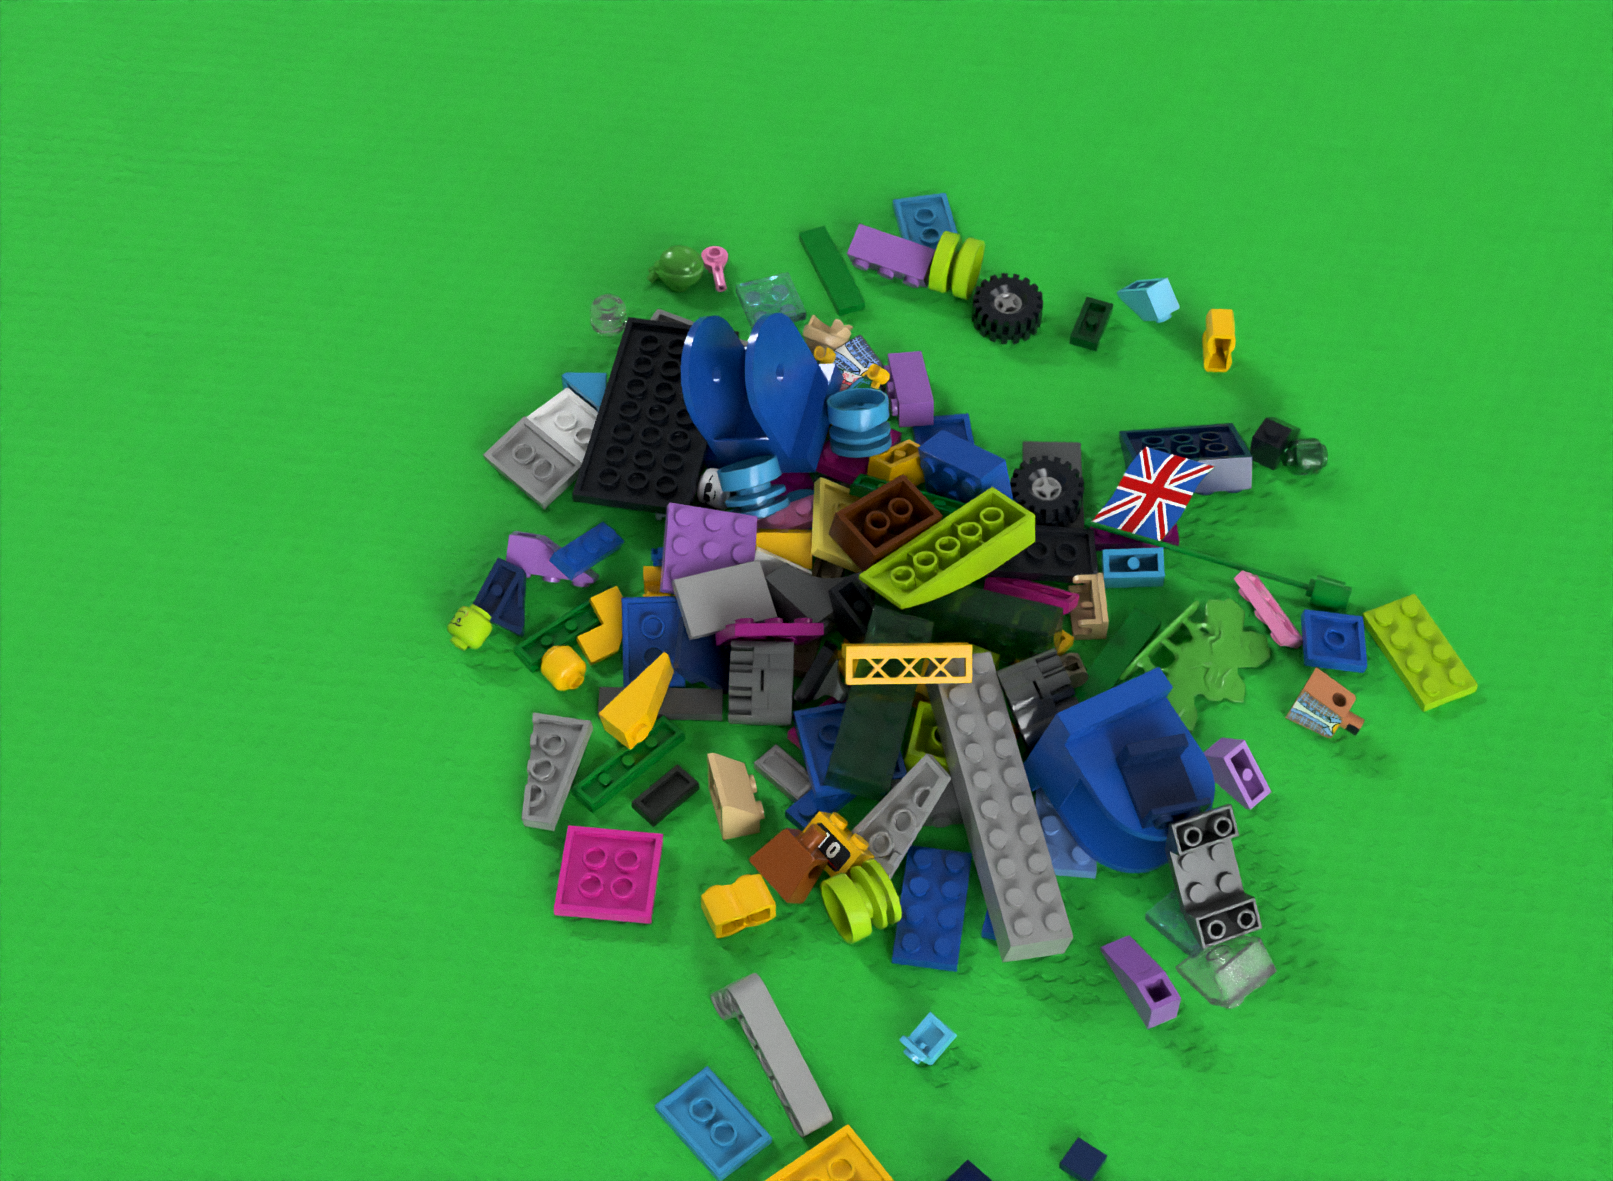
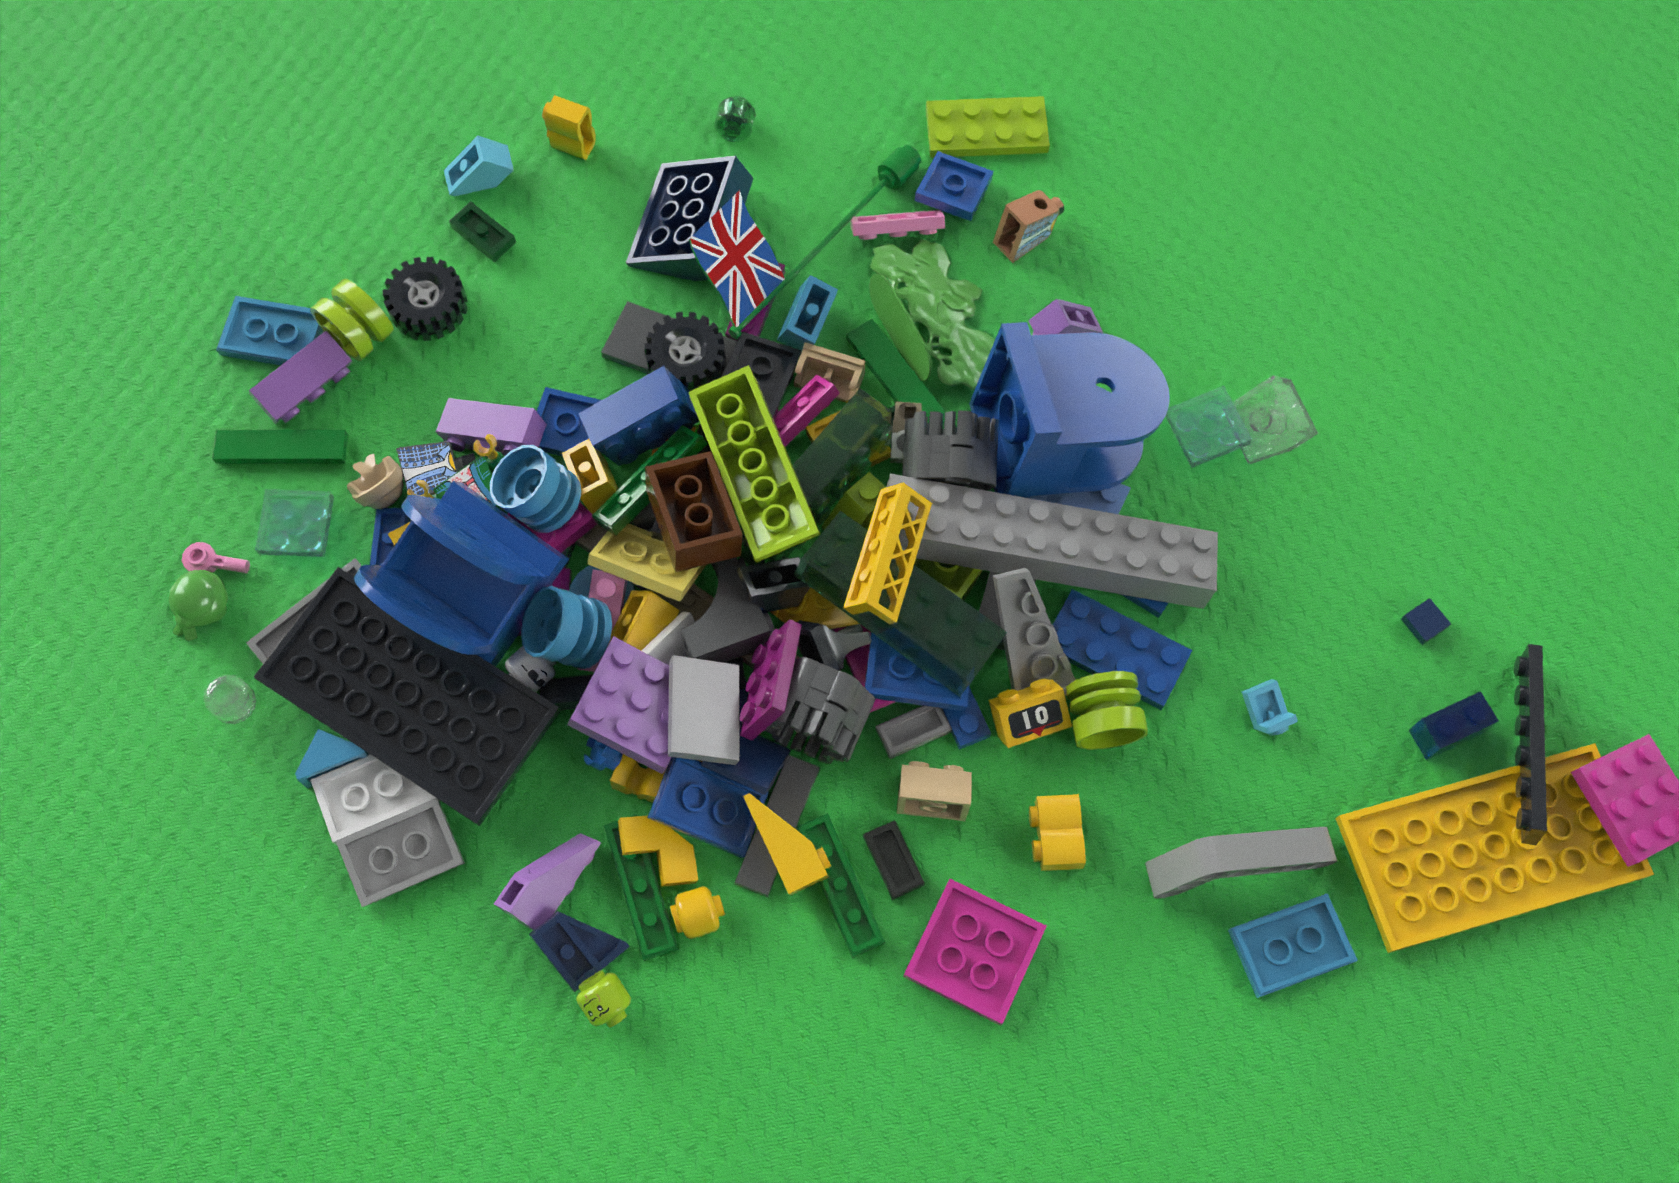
camera: 70 degrees left, 15 degrees up
(553, 763) = (810, 962): light grey wing -> none
(586, 550) = (558, 834): blue plate -> none
(792, 862) = (1036, 760): dark orange torso -> none
(1142, 981) = (1263, 494): medium lavender slope -> none
(1159, 781) = (1123, 382): dark blue panel -> none
(1209, 877) = (1204, 397): dark grey slope -> none
(1271, 440) = (703, 135): black slope -> none

